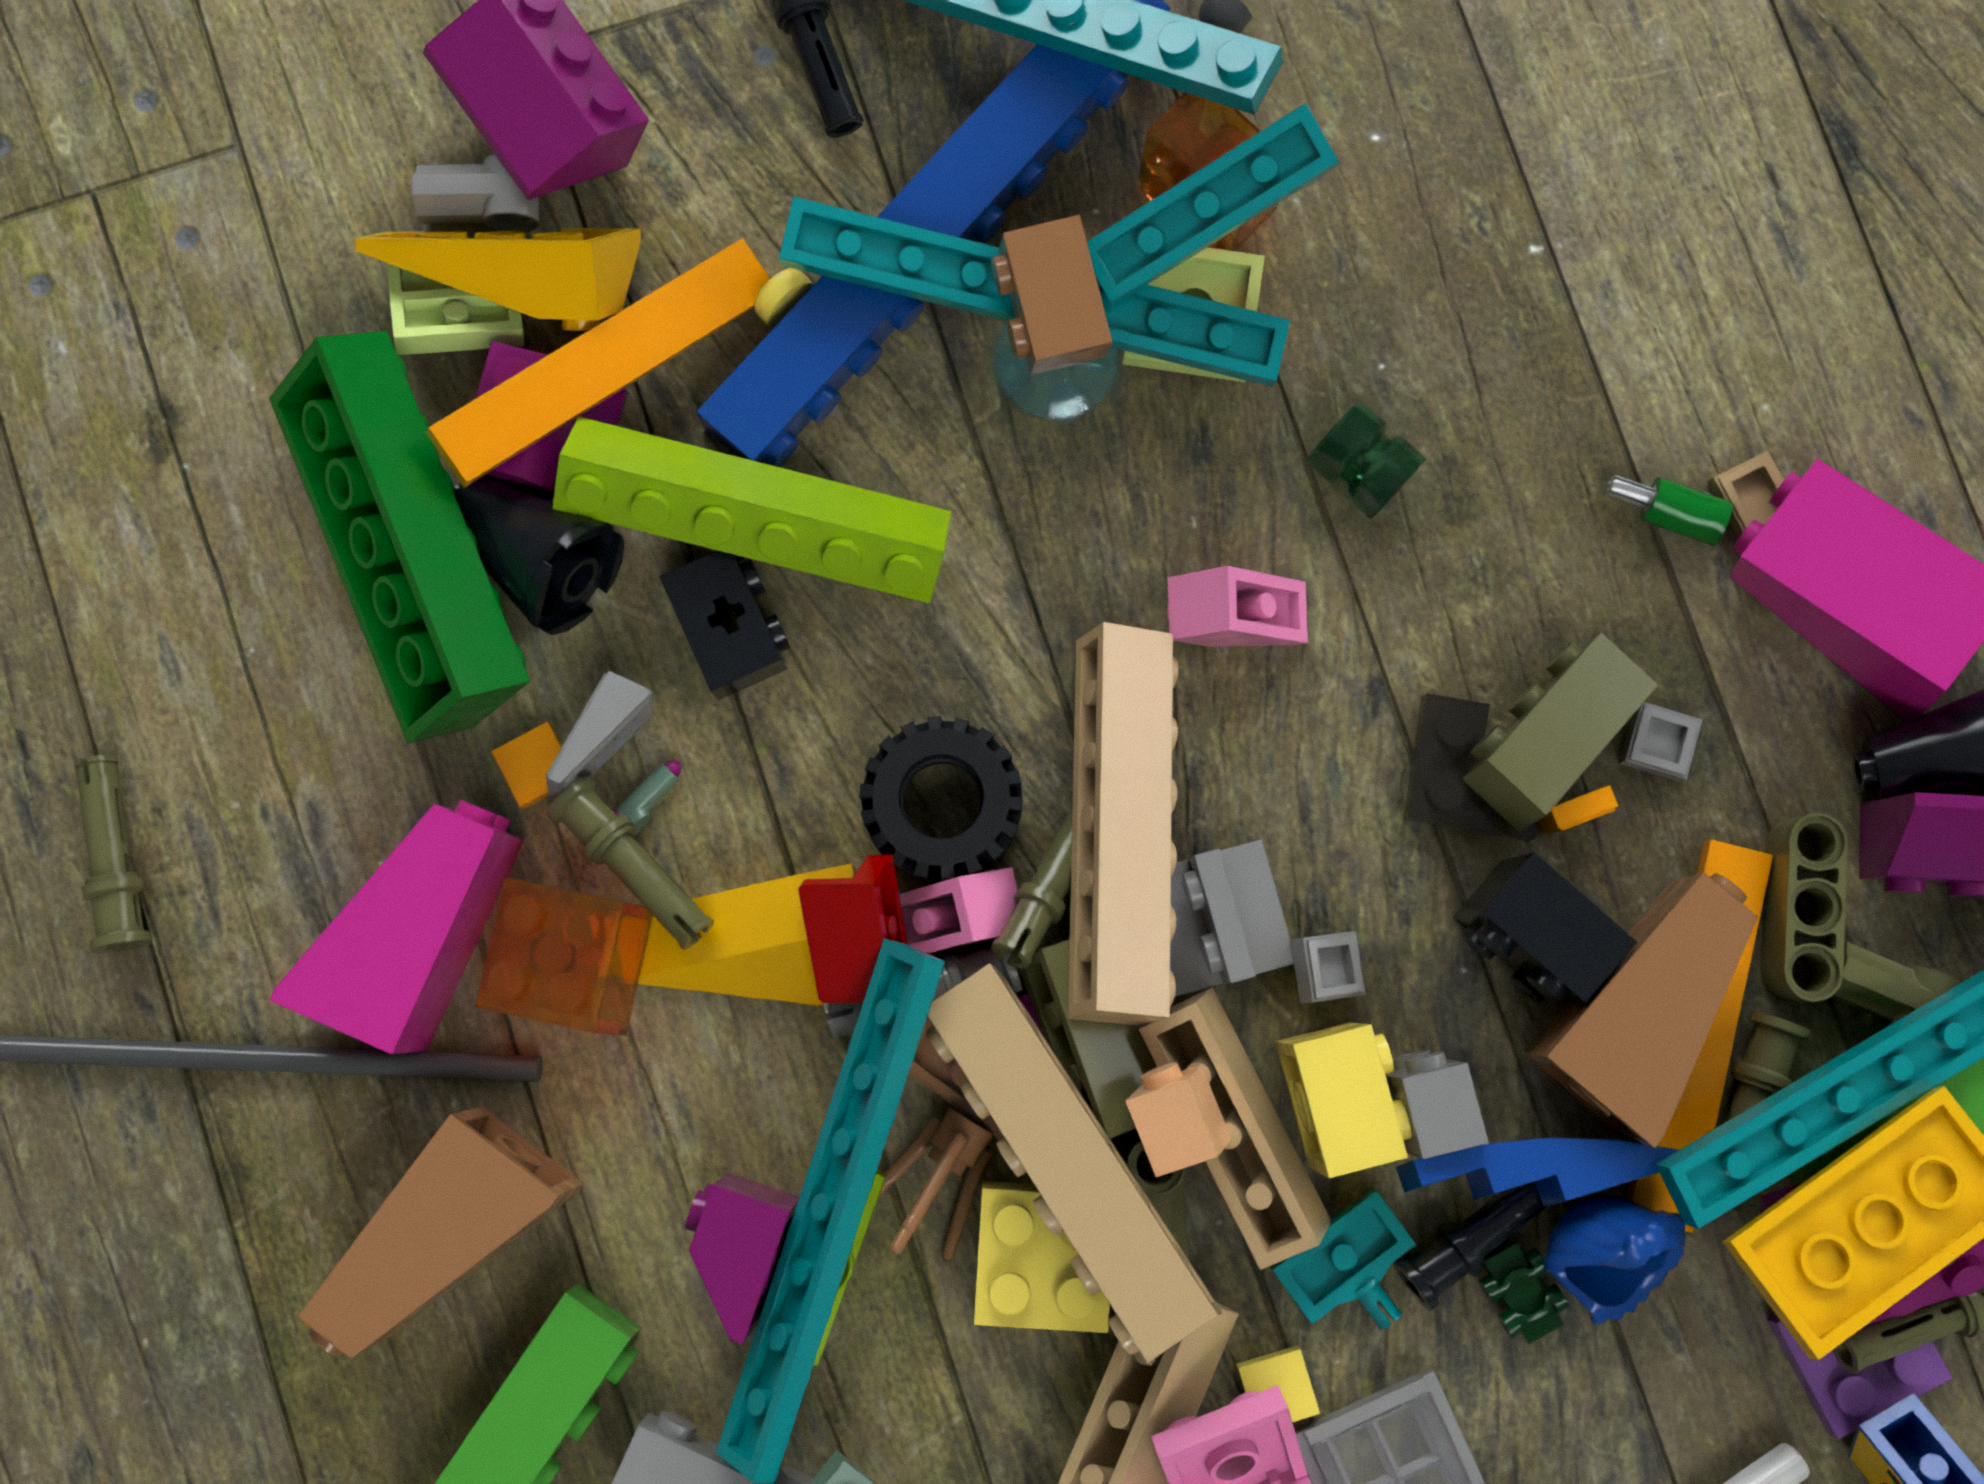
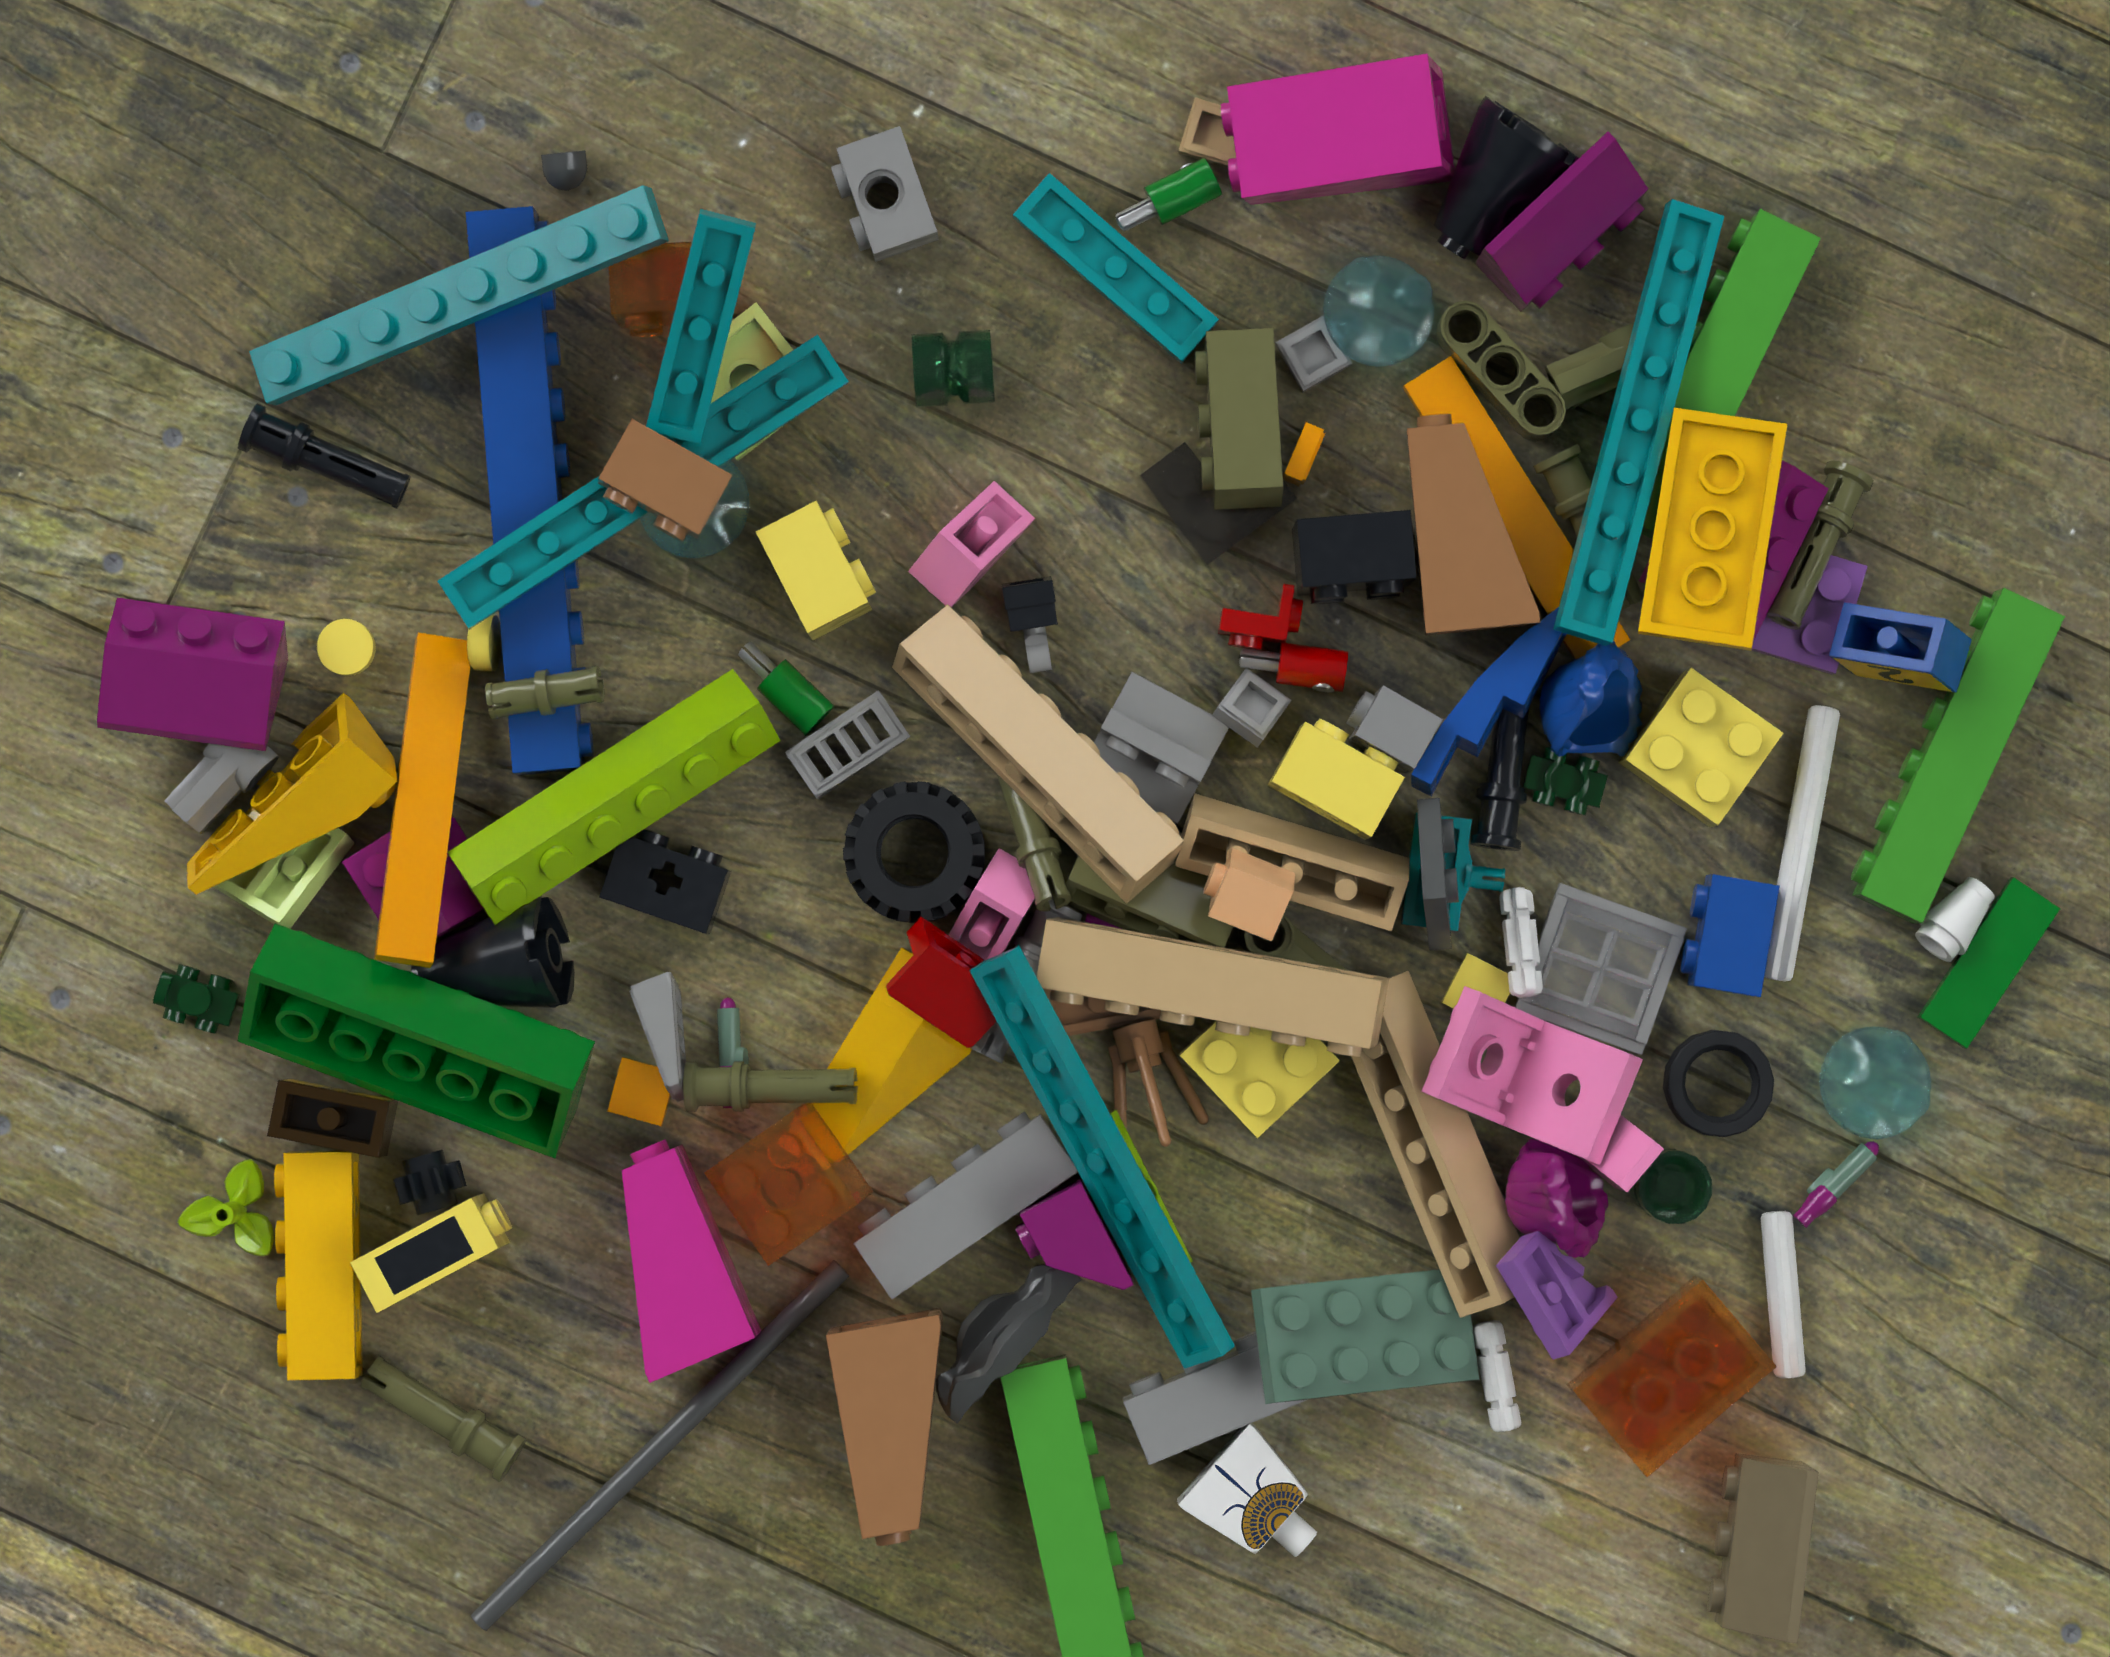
camera: 45 degrees left, 5 degrees up
(115, 516) = (210, 1216): none -> lime plant
(145, 638) = (319, 1283): none -> yellow brick
(229, 713) = (432, 1251): none -> brick
(273, 531) = (332, 1118): none -> dark brown brick
(276, 330) = (185, 996): none -> dark green piece
(295, 661) = (429, 1182): none -> black gear
(595, 1261) = (1000, 1336): none -> dark grey piece
(678, 198) = (346, 647): none -> light yellow tile
(684, 1123) = (964, 1206): none -> light grey brick
(785, 372) = (545, 692): none -> olive pin
(949, 681) = (807, 769): none -> light grey slope
(977, 576) = (788, 690): none -> green piece
(1092, 505) = (815, 570): none -> light yellow brick
(1232, 706) = (1030, 609): none -> black piece
(1341, 1272) = (1438, 883): none -> dark grey wing
(1353, 1388) = (1521, 942): none -> white axle
(1393, 904) = (1251, 629): none -> red bracket
(1402, 976) = (1301, 665): none -> red piece
(1475, 252) = (884, 160): none -> light grey brick
(1572, 515) = (1115, 268): none -> teal plate
(1667, 1386) = (1701, 747): none -> light yellow brick
(1750, 760) = (1378, 310): none -> clear light blue dish

